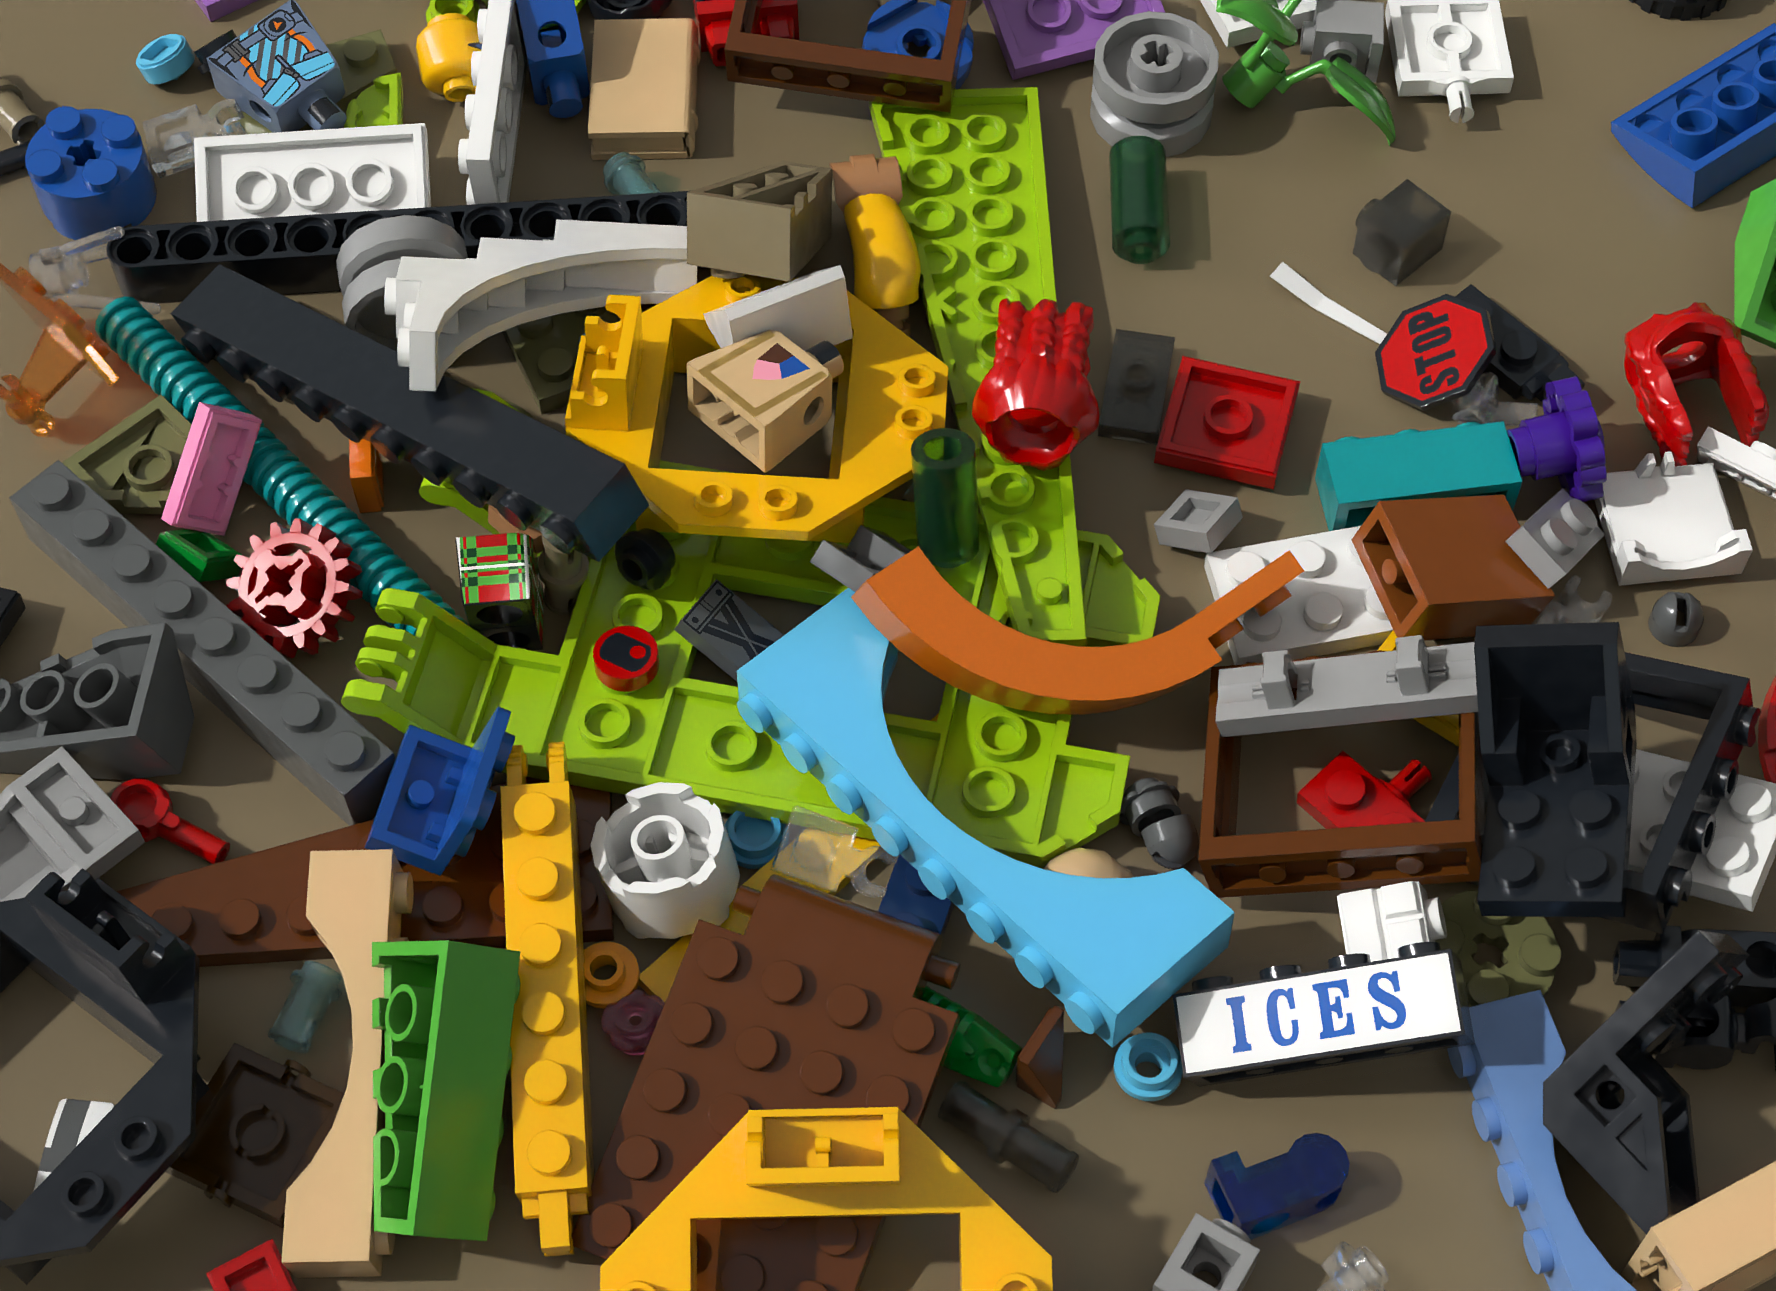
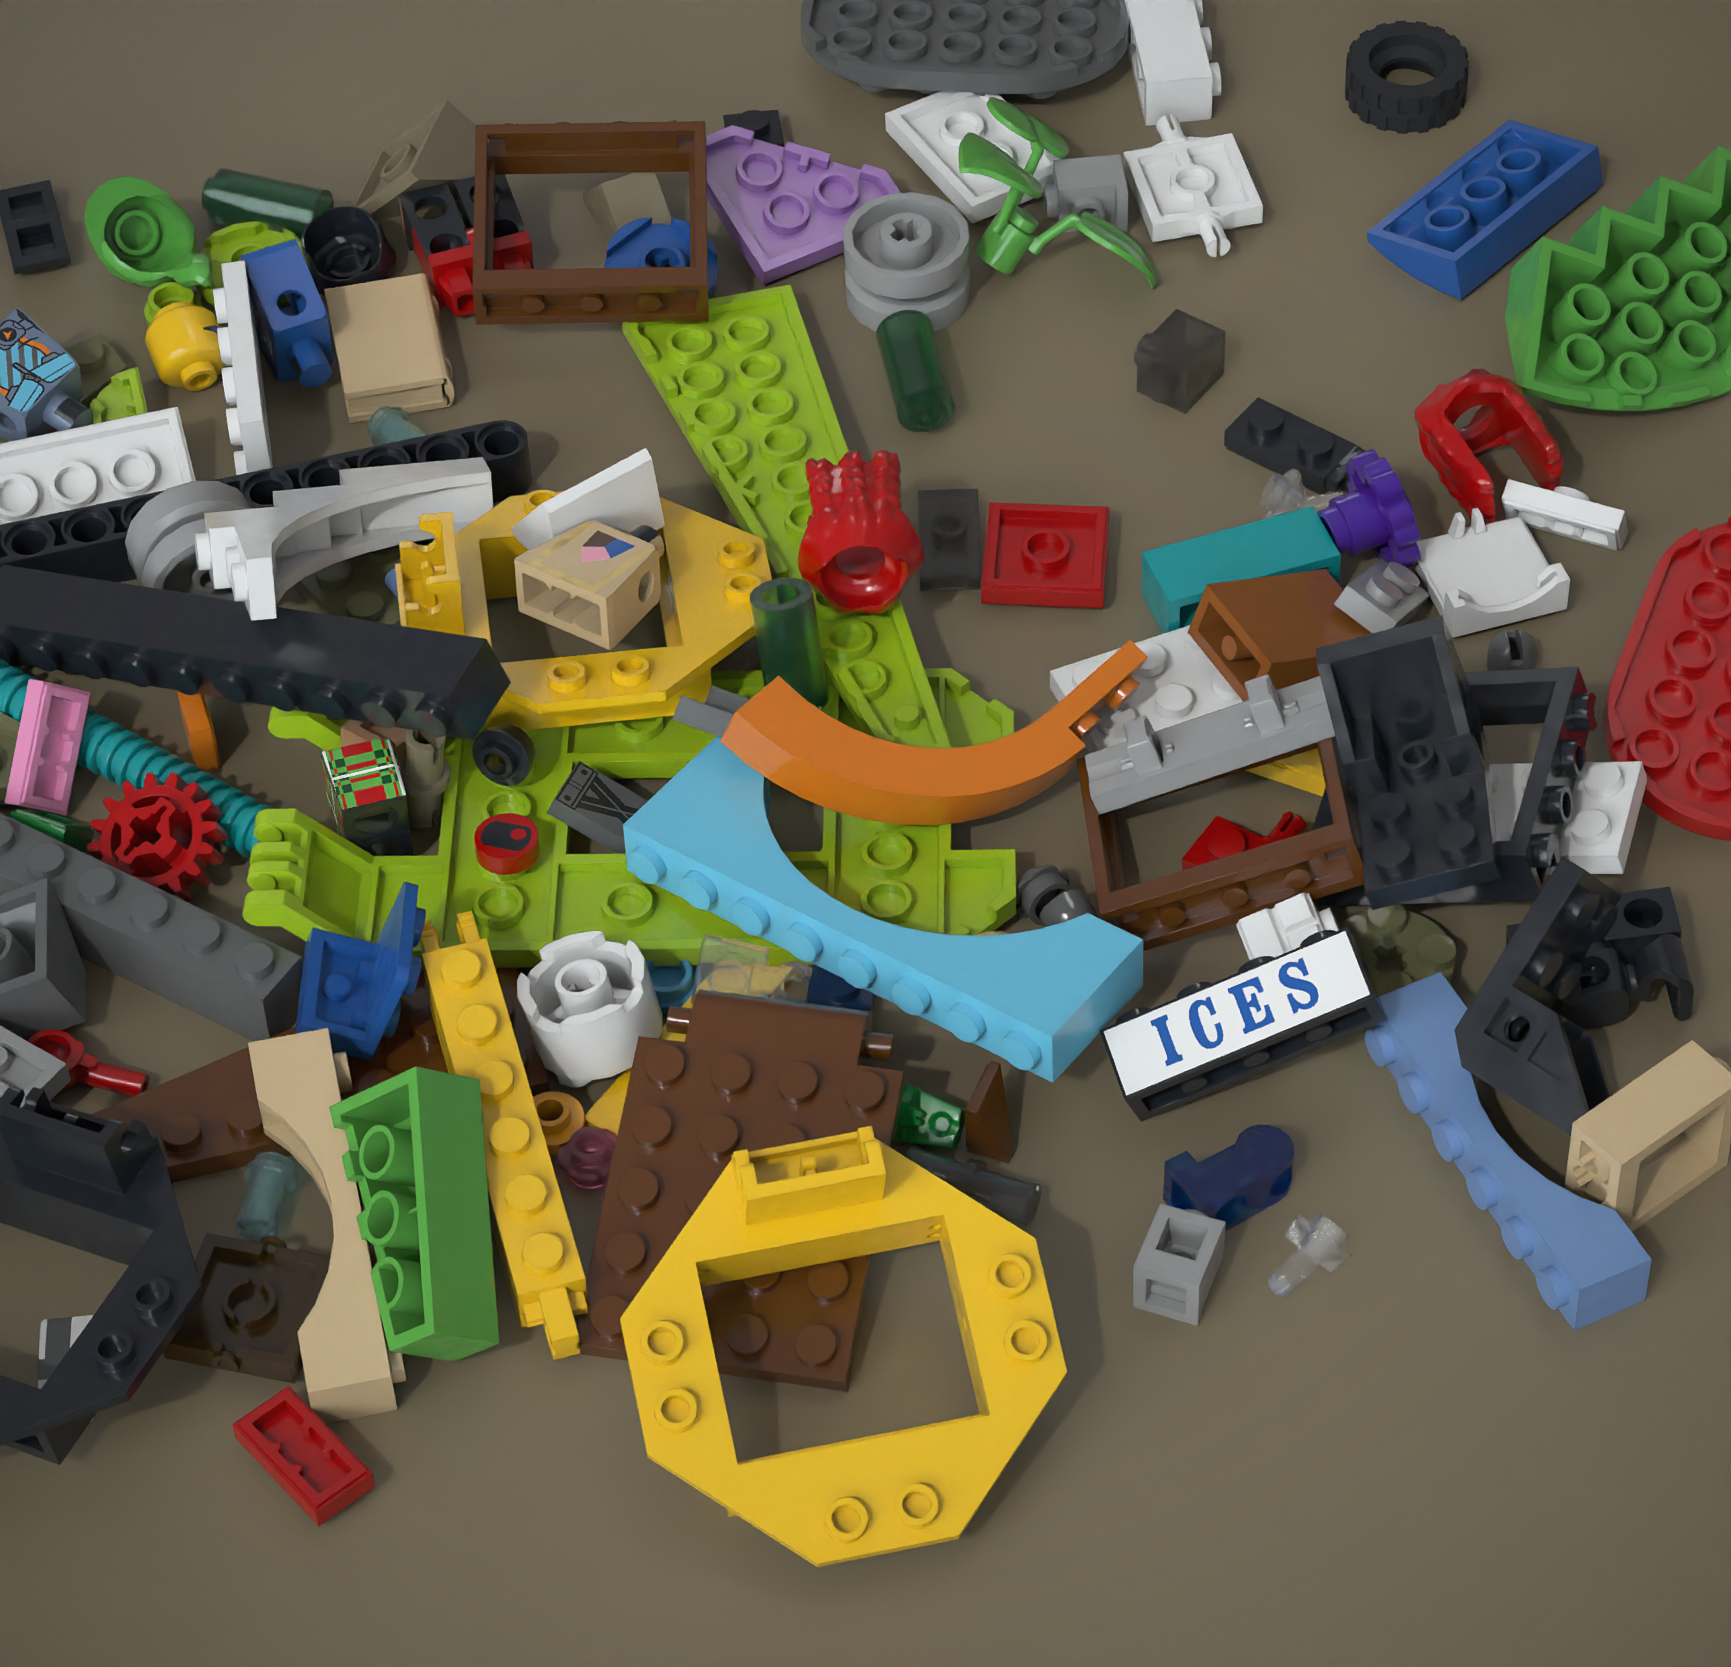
camera: 10 degrees left, 10 degrees down
(760, 221) = (545, 438): dark tan wedge -> none
(881, 239) = (649, 415): yellow piece -> none
(1148, 1048) = (1089, 1093): medium azure plate -> none
(1198, 521) = (1036, 644): light grey plate -> none
(1309, 294) = (1113, 439): white sticker -> none
(1435, 352) = (1235, 460): piece -> none

